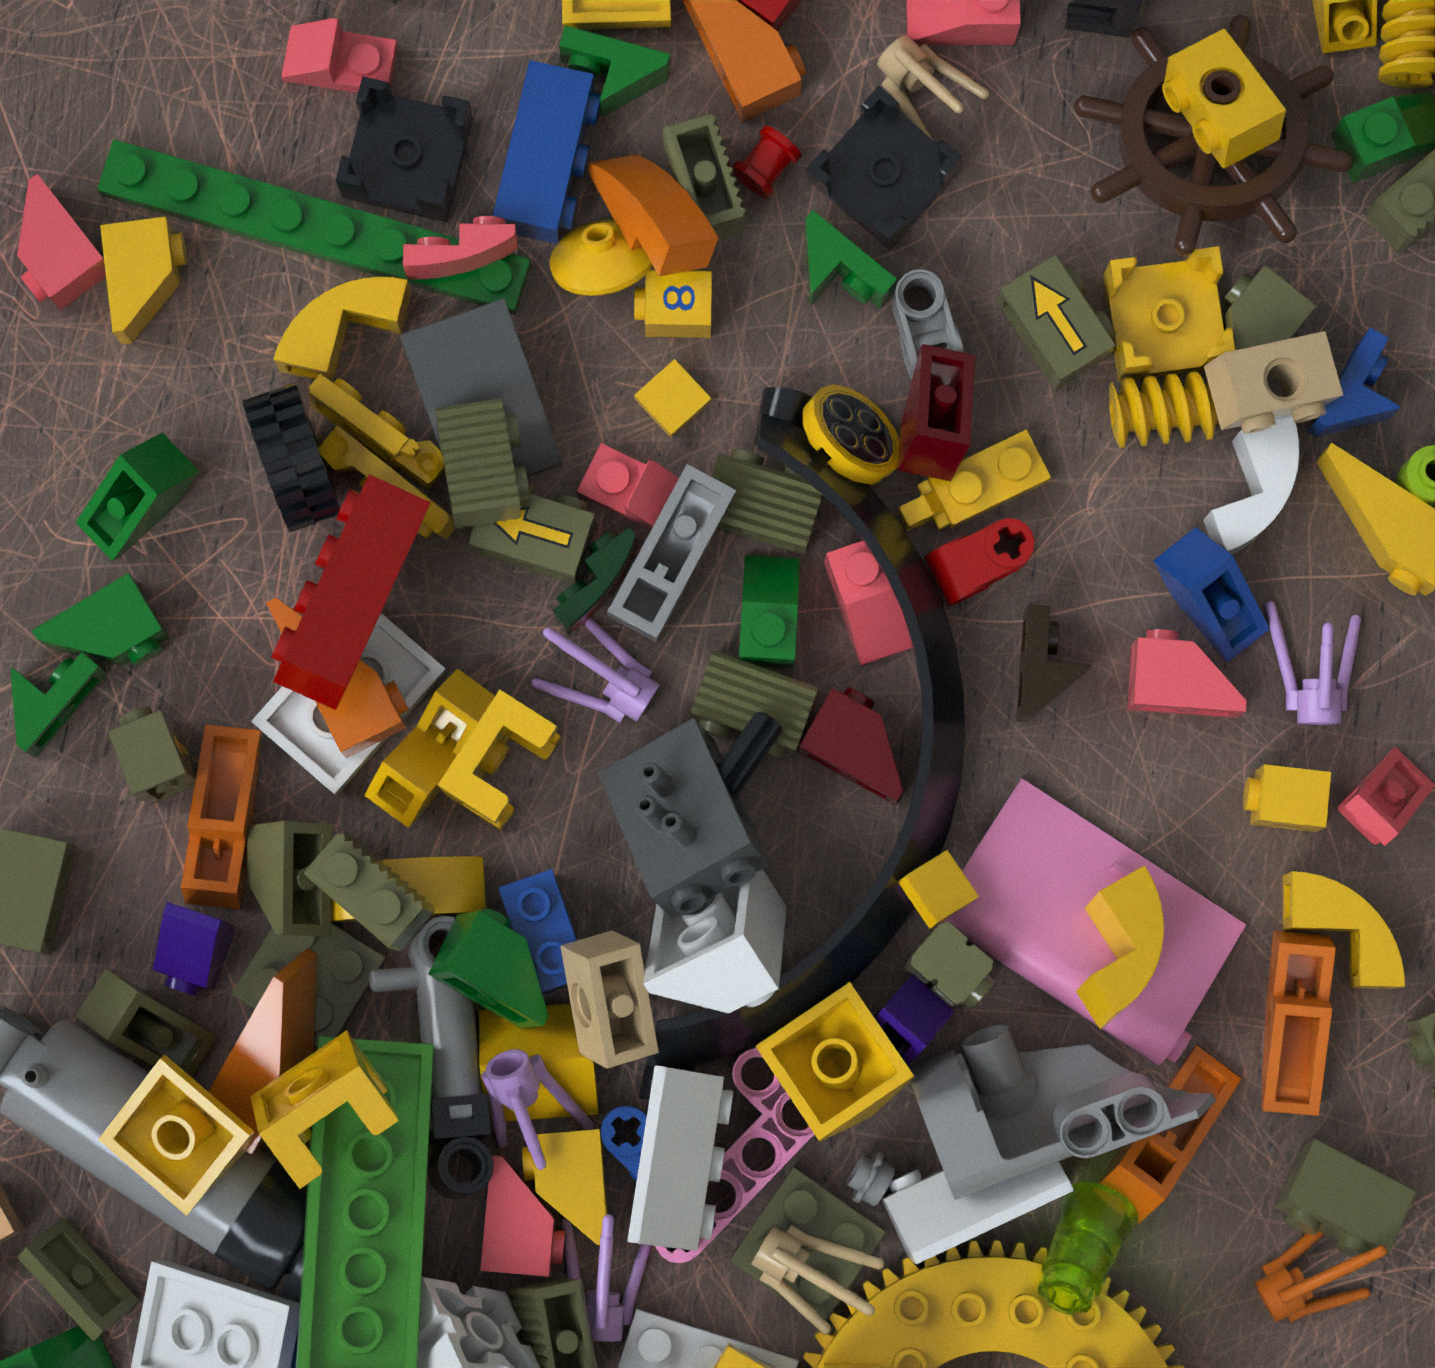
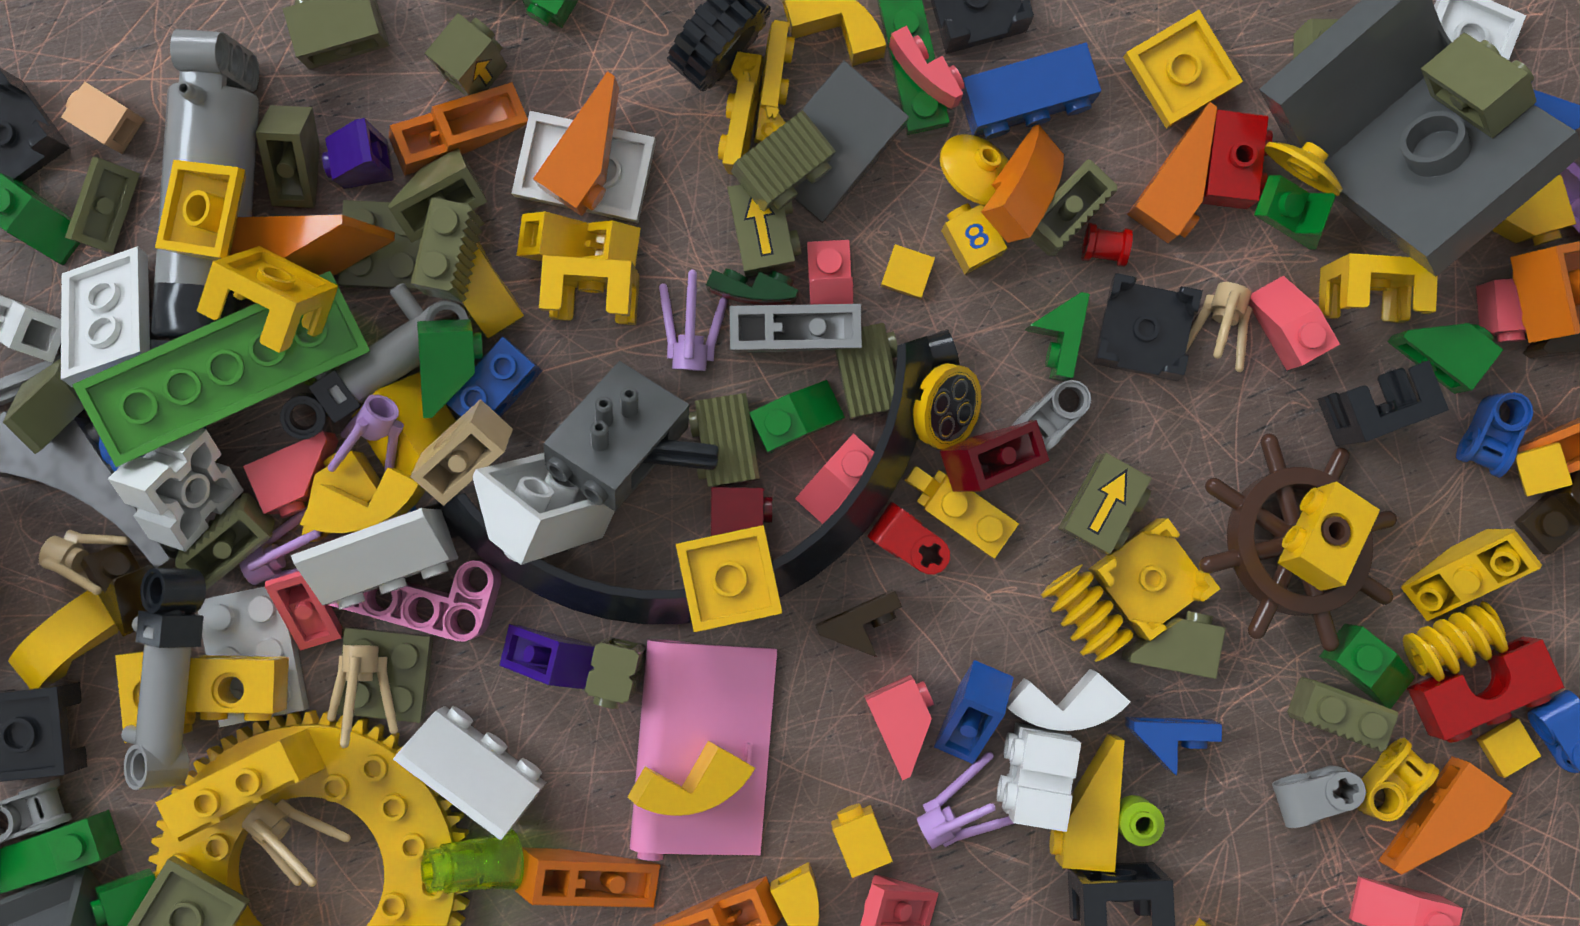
camera: 65 degrees right, 5 degrees up
(351, 591) = (641, 121): red wedge -> none
(604, 1175) = (341, 512): none -> yellow brick
(628, 67) = (1120, 114): green slope -> none
(684, 1290) = (302, 611): none -> coral slope
(836, 1063) = (505, 628): yellow slope -> none
(870, 1179) = (449, 693): light grey plate -> none
(916, 774) = (729, 578): none -> yellow panel
(938, 889) = (662, 635): yellow tile -> none
(1035, 1107) = (548, 783): light grey panel -> none
(1299, 365) = (1164, 693): tan brick -> none
(1321, 557) = (1039, 776): none -> white brick

